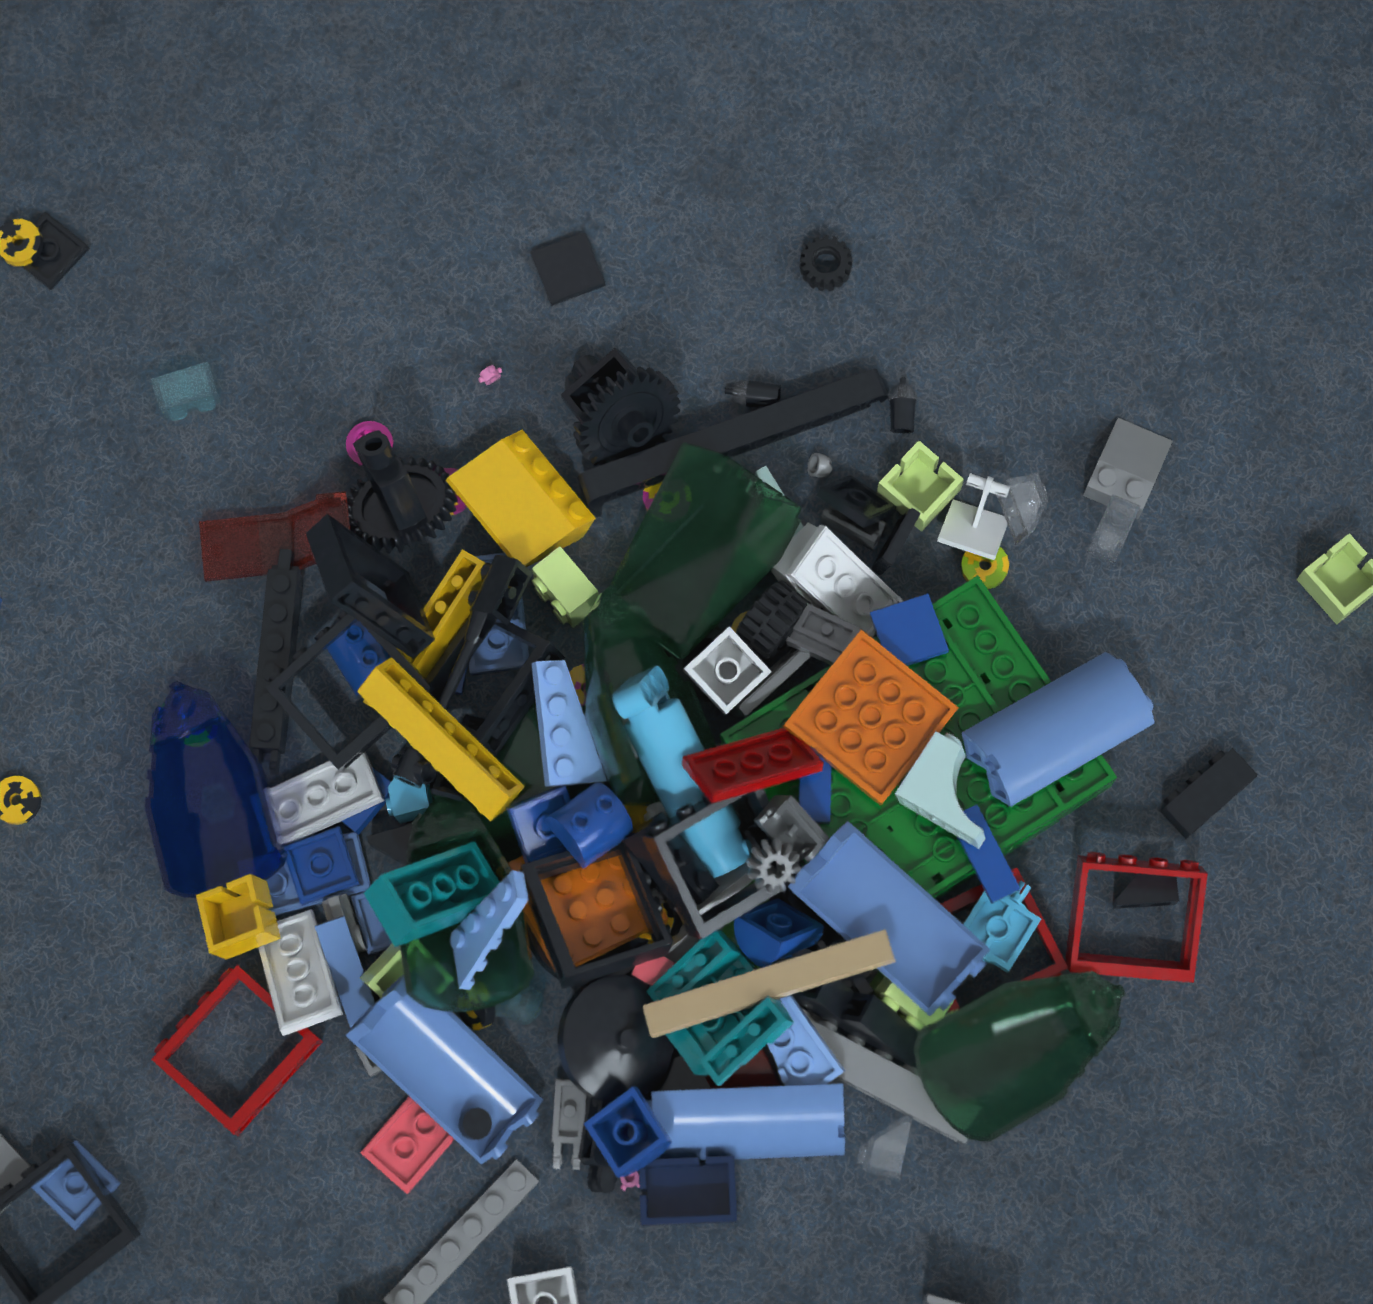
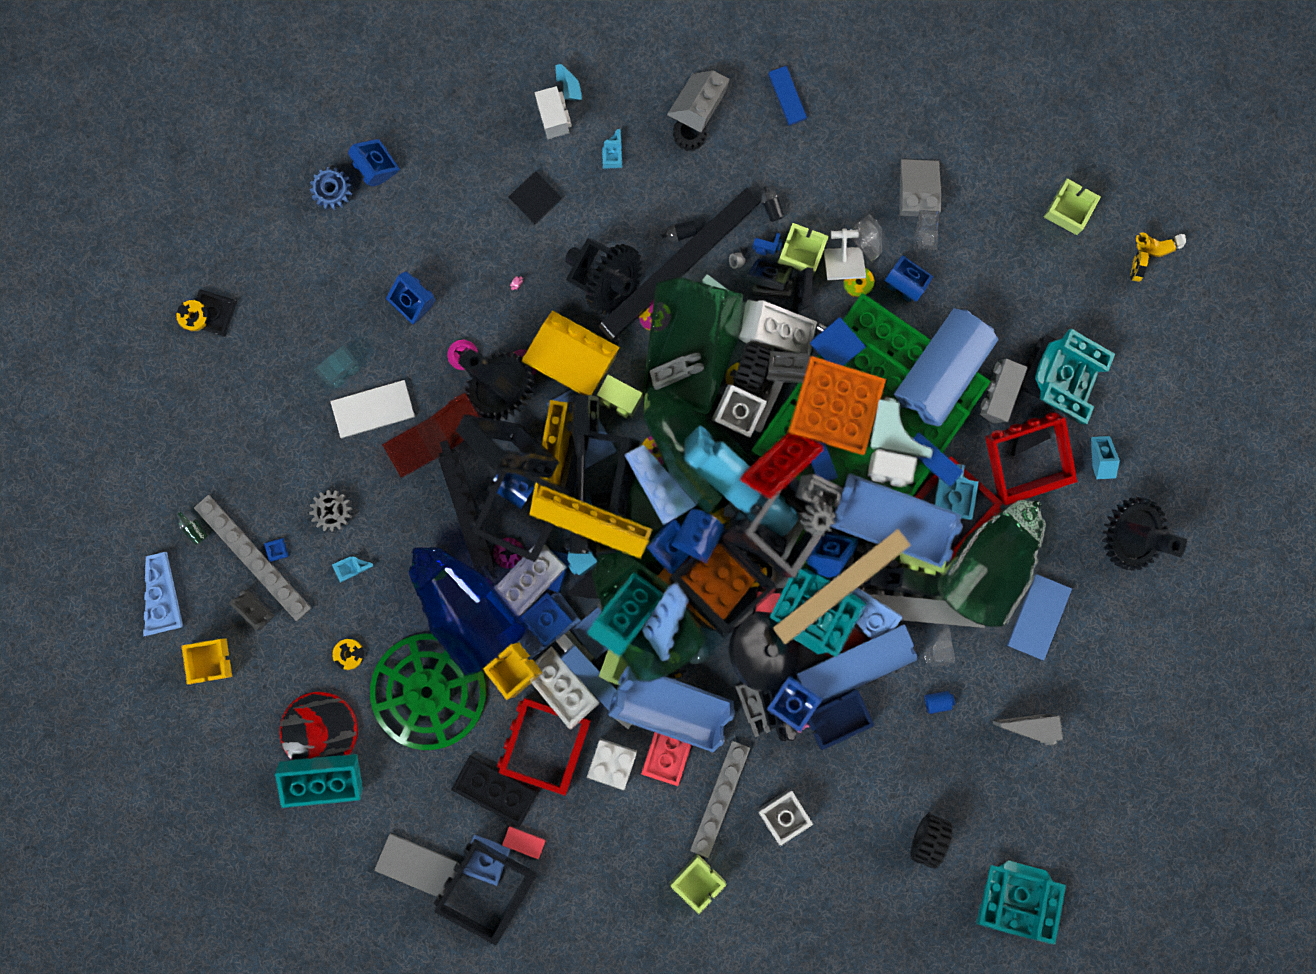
camera: 25 degrees left, 10 degrees up
(76, 678) = (350, 567): none -> medium azure slope
(95, 581) = (325, 517): none -> light grey gear
(96, 921) = (417, 702): none -> green dish
(135, 1087) = (494, 791): none -> black tile
(143, 1182) = (523, 842): none -> coral tile
(209, 469) = (372, 409): none -> white tile
(285, 132) = (326, 179): none -> medium blue gear
(296, 753) = (502, 559): none -> dark pink gear
(323, 1117) = (612, 764): none -> white brick
(331, 335) = (410, 297): none -> blue brick
(362, 132) = (373, 162): none -> blue brick
(475, 1123) = (701, 732): black tile -> none
(642, 160) = (551, 108): none -> white brick
(662, 582) = (675, 370): none -> light grey hinge
(684, 134) = (570, 84): none -> medium azure slope
(705, 248) = (612, 151): none -> medium azure slope
(852, 1230) = (939, 702): none -> blue brick
(858, 222) = (699, 99): none -> light grey slope
(866, 461) = (763, 247): none -> blue bracket
(912, 837) = (891, 467): none -> white brick
(988, 266) = (787, 95): none -> blue tile
(1057, 588) = (908, 279): none -> blue brick
(1057, 1166) = (1039, 617): none -> medium blue tile
(1130, 800) = (1002, 391): none -> light grey slope
(1245, 817) = (1069, 373): none -> teal slope
(1250, 965) = (1104, 457): none -> medium azure slope
(1256, 1098) = (1138, 533): none -> black piece

